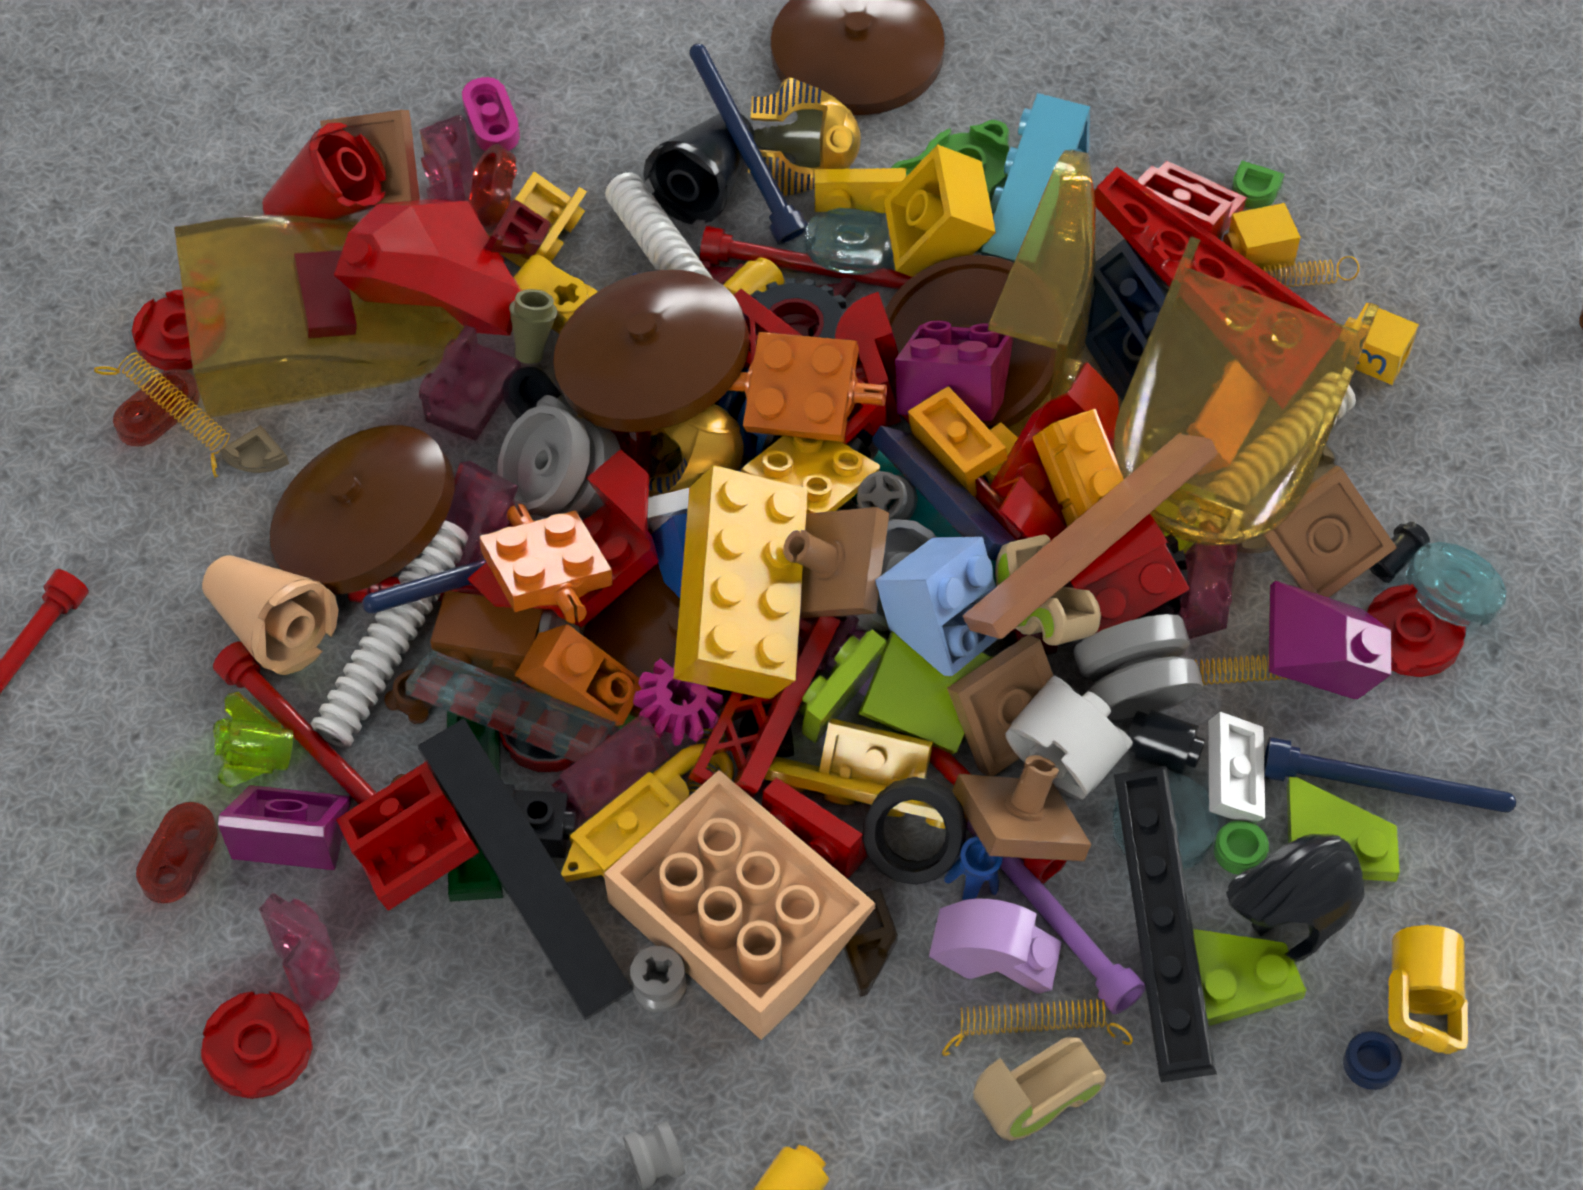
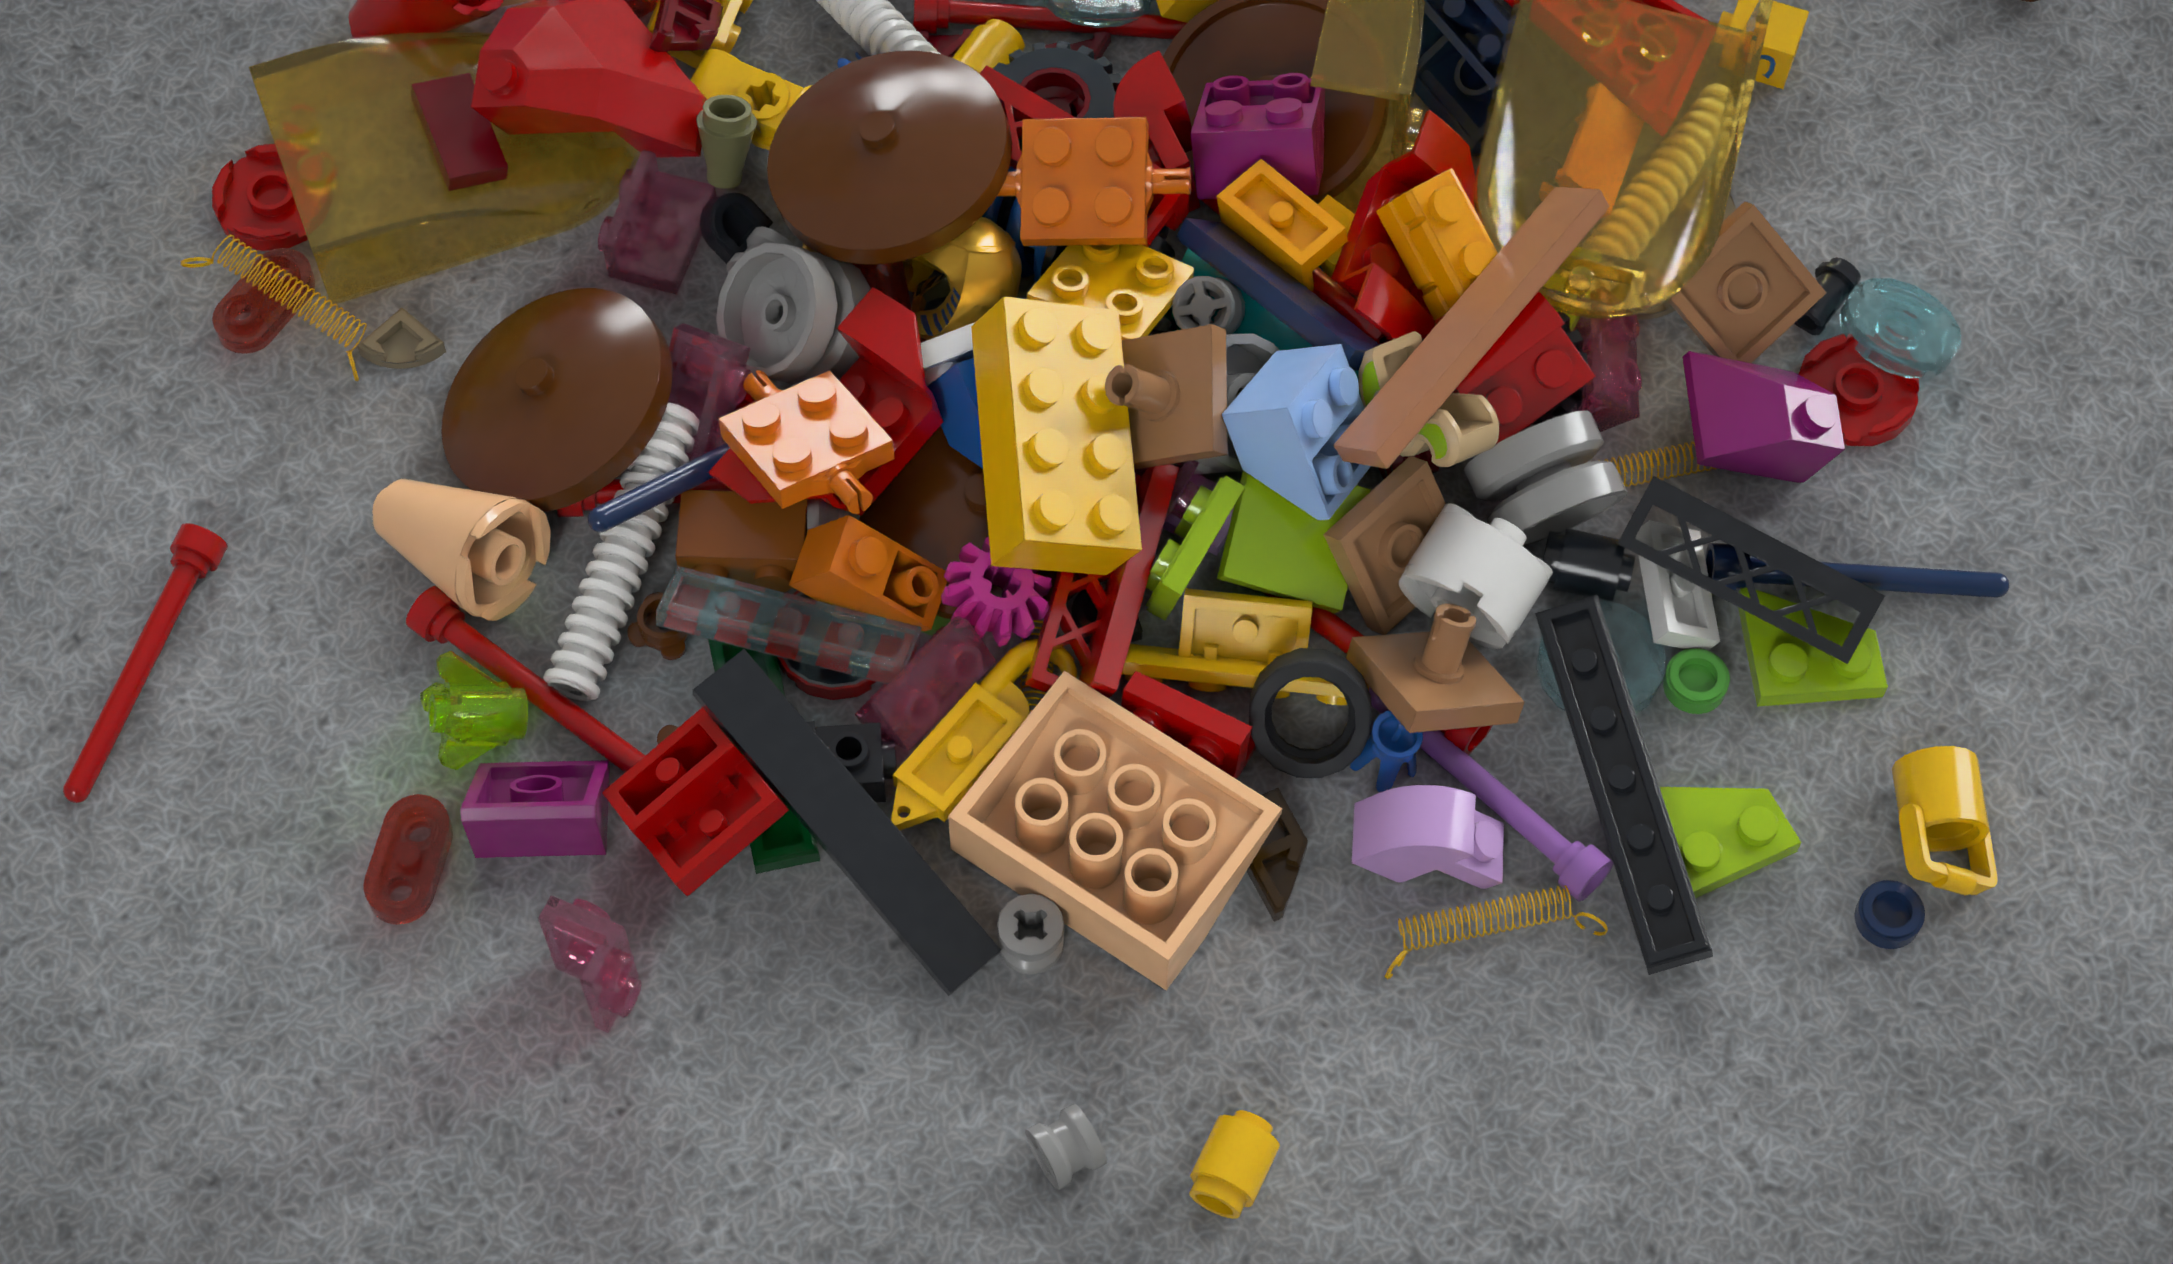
camera: 10 degrees left, 5 degrees up
(260, 1061) = (563, 1101): red tile -> none
(1039, 1089) = (1509, 1003): tan animal -> none
(1302, 882) = (1781, 716): black hair -> none
(1308, 744) = (1762, 547): none -> black fence

